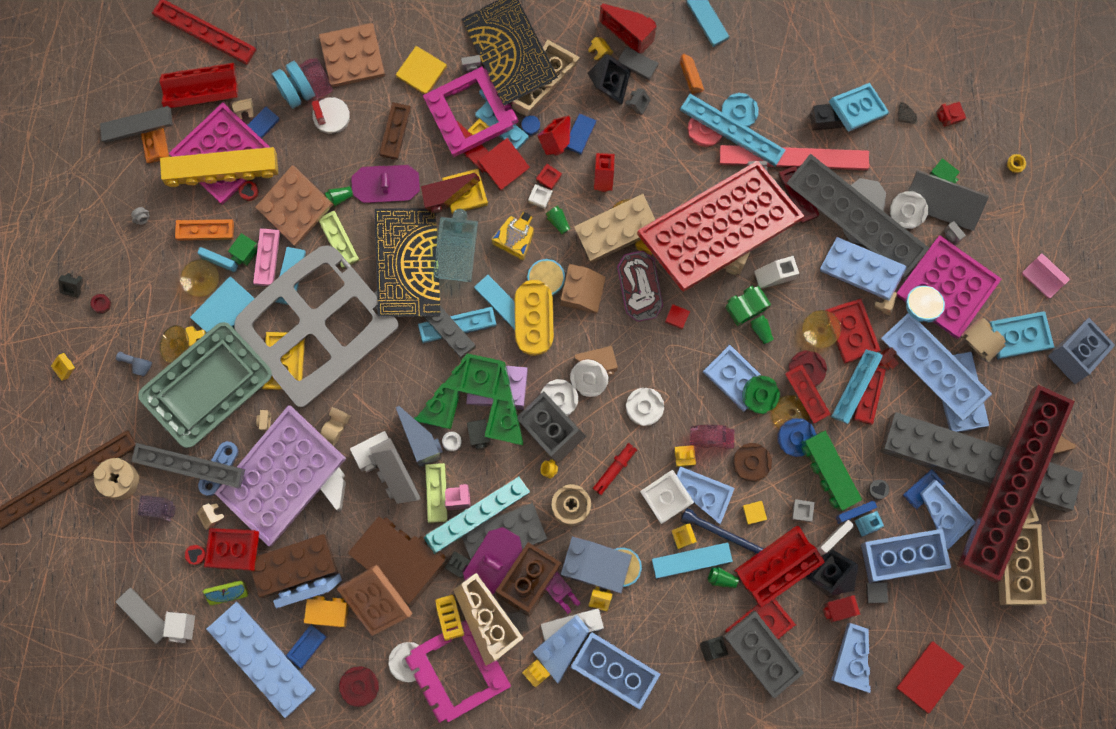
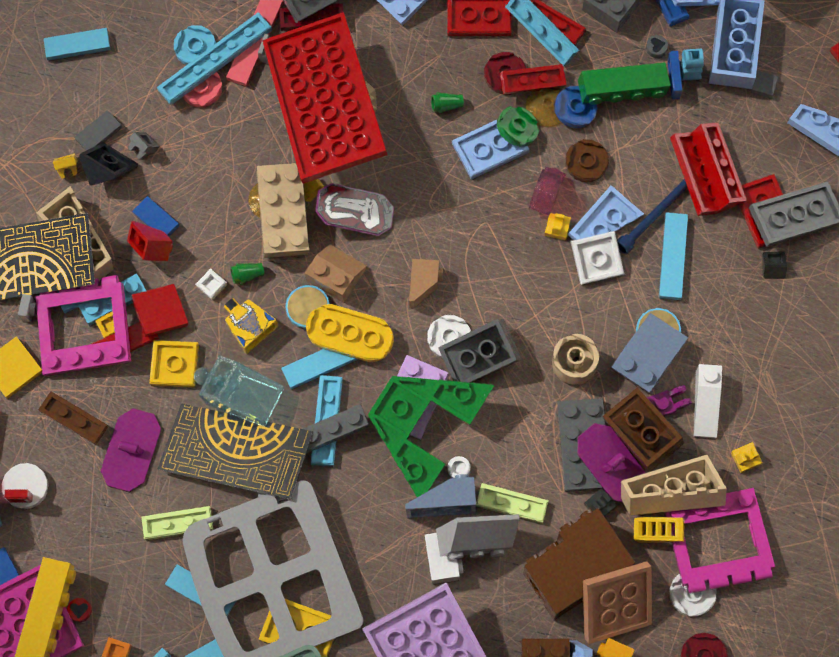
camera: 65 degrees left, 5 degrees down
(243, 250) = (150, 635): green brick -> none
(266, 257) = (169, 611): bright pink plate -> none
(294, 205) = (119, 559): nougat plate -> none
(332, 429) = (397, 592): tan leg -> none
(335, 489) = (476, 614): white slope -> none
(339, 195) = (125, 508): green cone -> none
(446, 192) = (170, 385): dark red slope -> none
(457, 498) = (528, 475): bright pink panel -> none
(476, 434) = (461, 434): pearl dark grey brick -> none
(476, 515) = (555, 462): plate -> none
(530, 125) = (124, 267): blue tile -> none
(549, 177) = (193, 266): red plate -> none
(549, 469) = (522, 374): yellow plate -> none
(561, 647) = (728, 418): light blue wing -> none
(589, 378) = (439, 294): white tile -> none
(600, 599) = (687, 362): yellow tile -> none
(604, 172) = (210, 205): red slope -> none
(615, 670) = (770, 370): light blue brick -> none
(619, 462) = (543, 294): red pin -> none
(629, 26) = (54, 125): red slope -> none
(645, 406) = (489, 250): white tile -> none
(677, 316) = (401, 184): red tile -> none
(684, 536) = (645, 254): yellow plate -> none
(691, 74) = (133, 82): orange slope -> none
(722, 578) = (702, 231): green cone -> none
(747, 305) = (416, 108): green brick -> none
(754, 512) = (642, 176): yellow tile -> none
(777, 272) = (391, 65): white slope -> none
(803, 510) = (656, 126): light grey plate -> none
(825, 320) = (467, 33): clear yellow dish -> none
(834, 537) = (696, 101): white tile -> none
(835, 575) = (736, 116): black slope -> none
(841, 609) = (773, 120): red slope -> none

